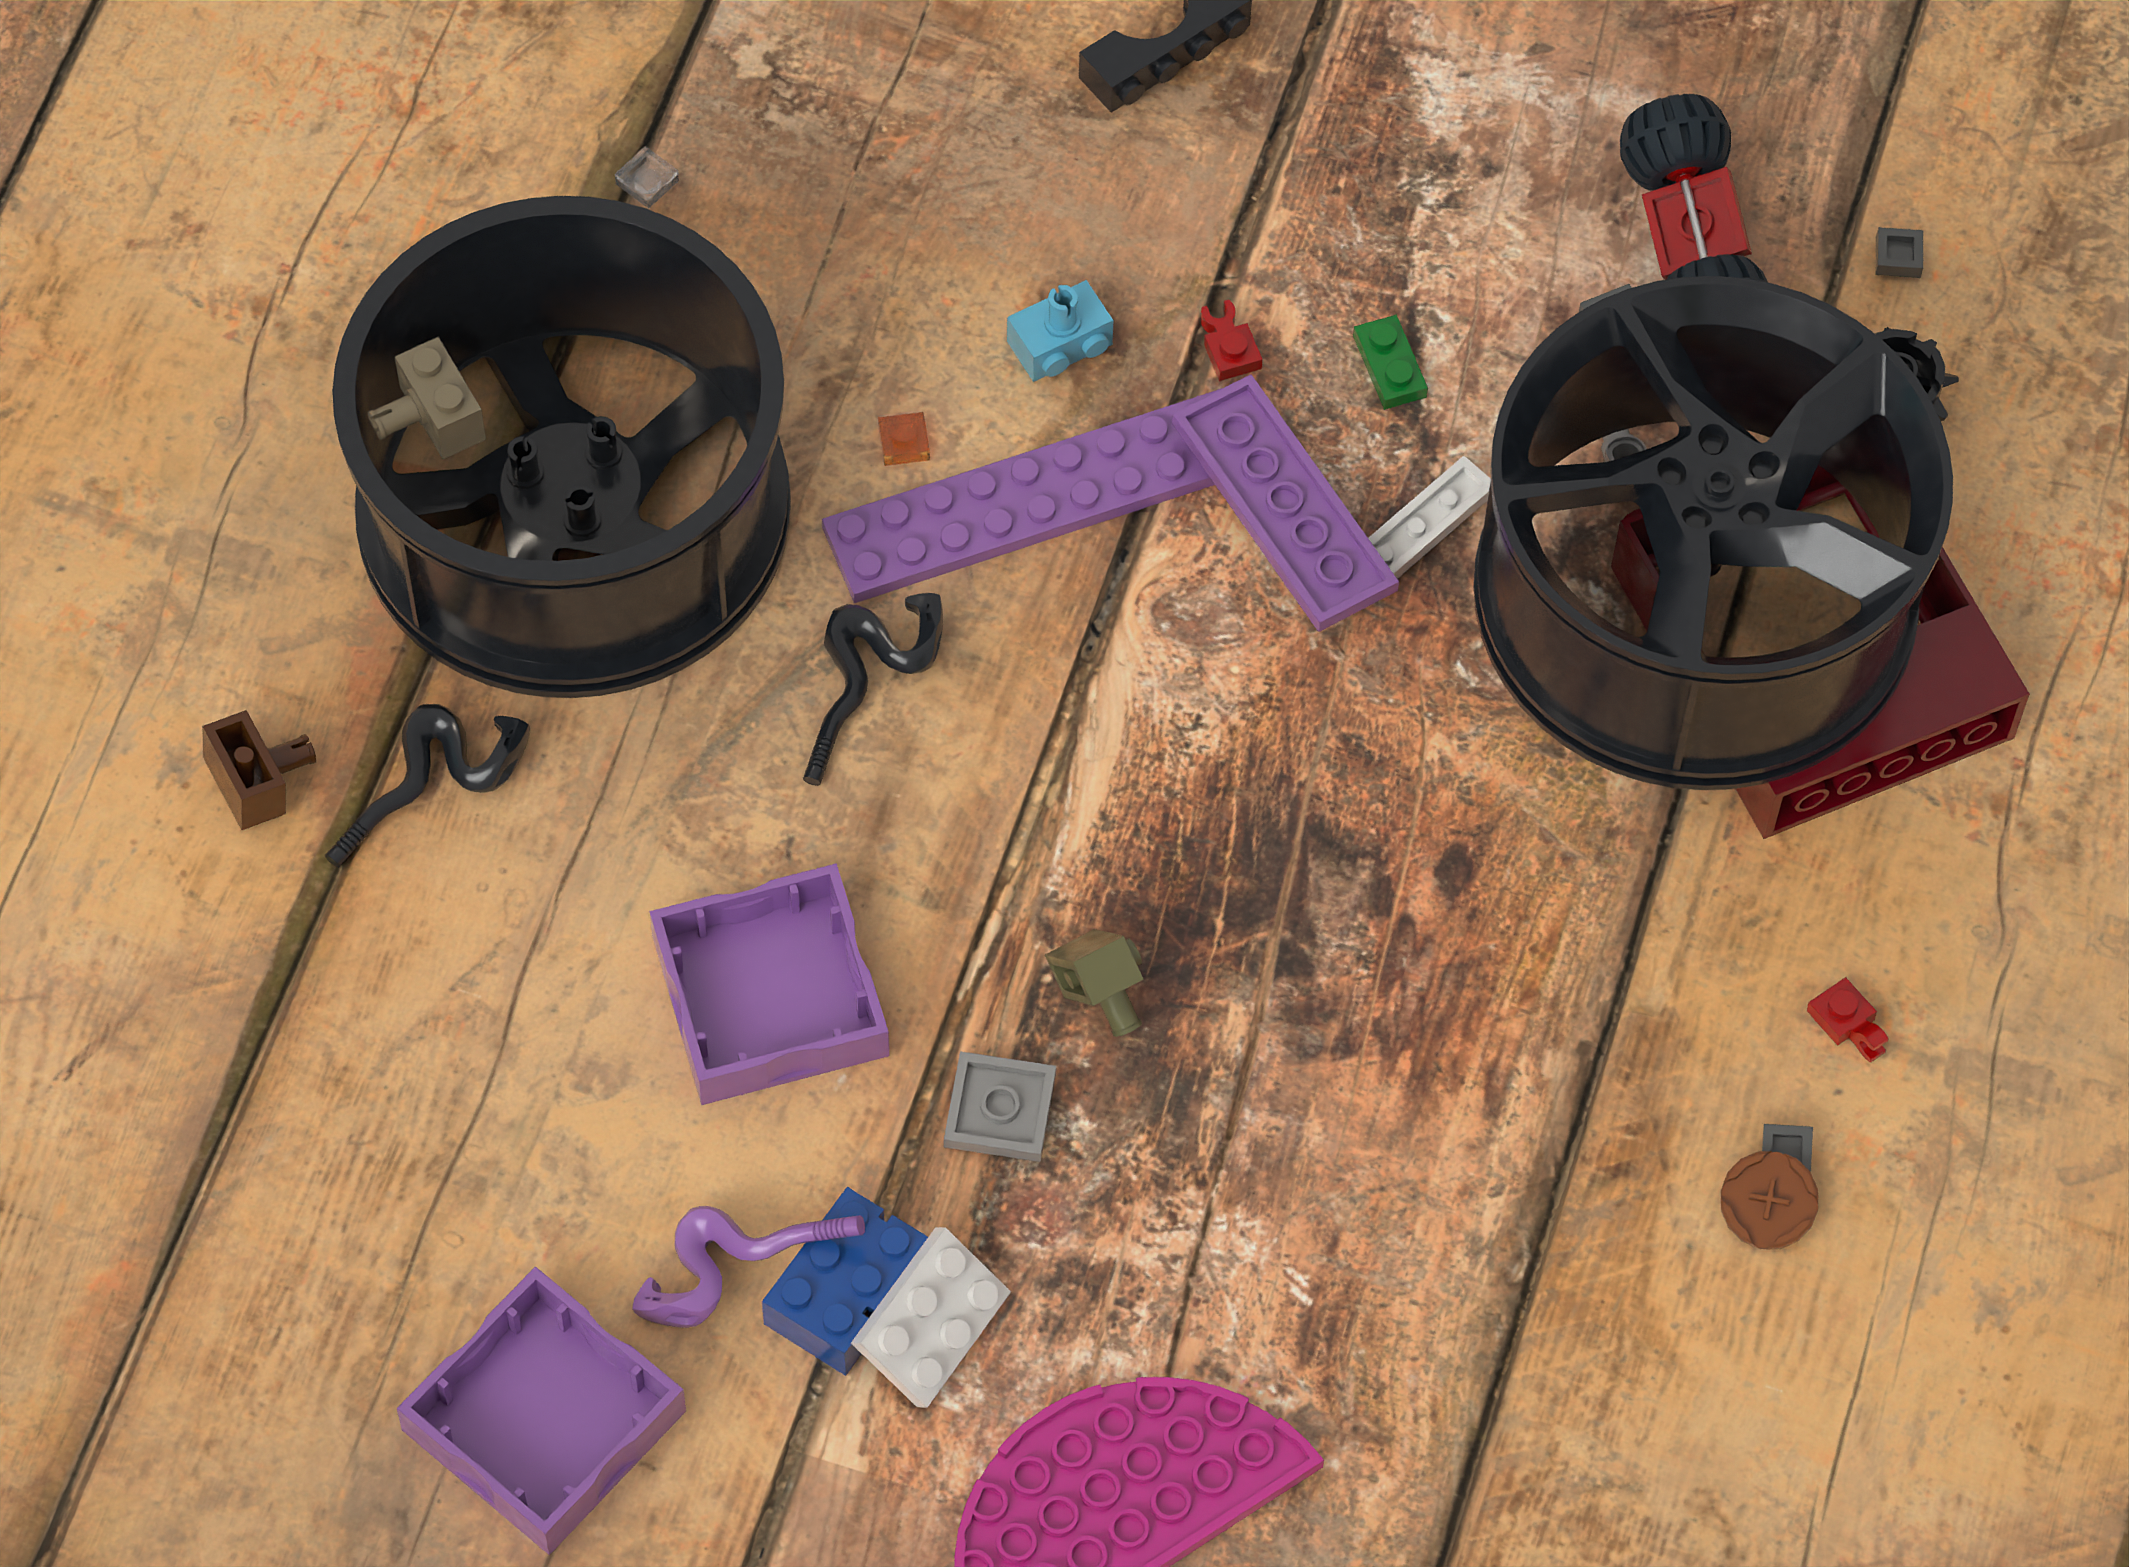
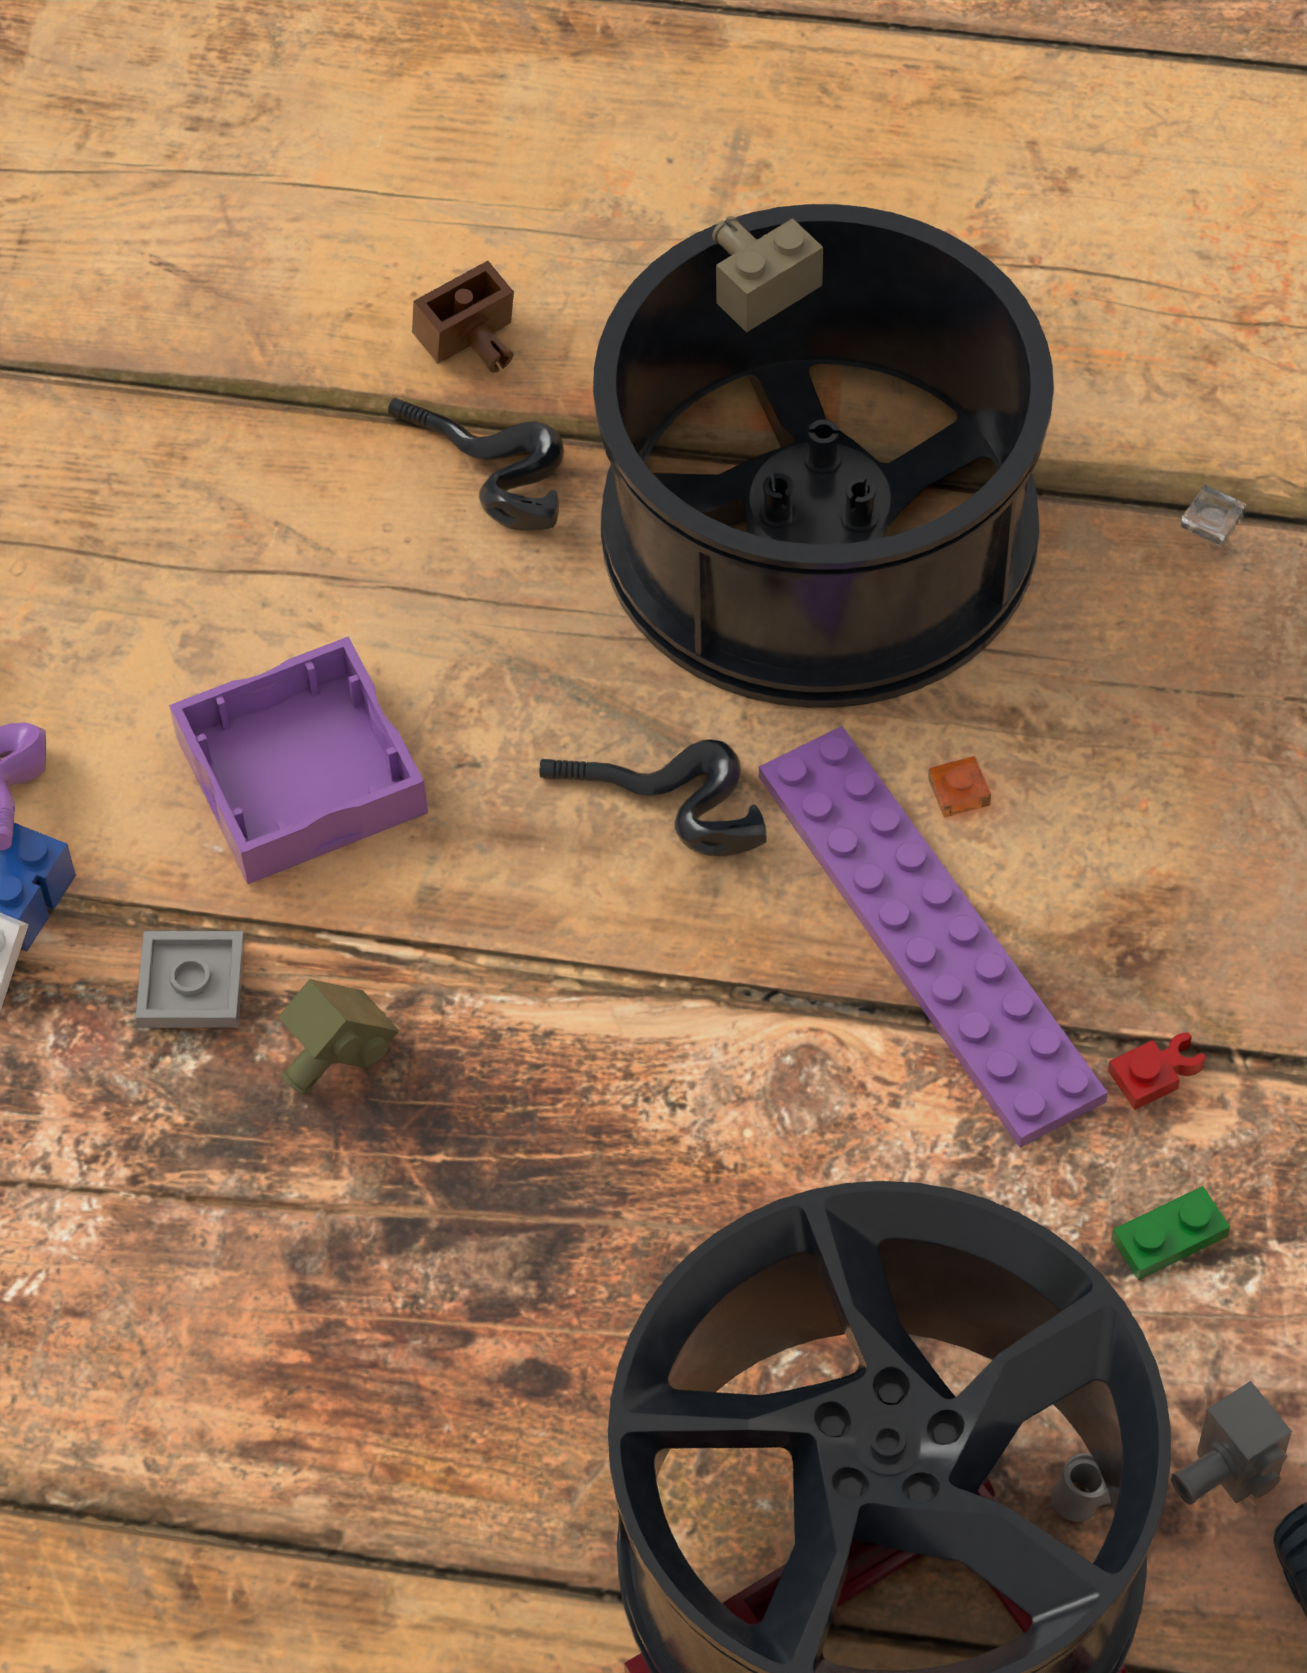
camera: 85 degrees right, 5 degrees down
(1060, 330) = (1119, 901): medium azure brick -> none
(1285, 503) = (957, 1111): medium lavender plate -> none

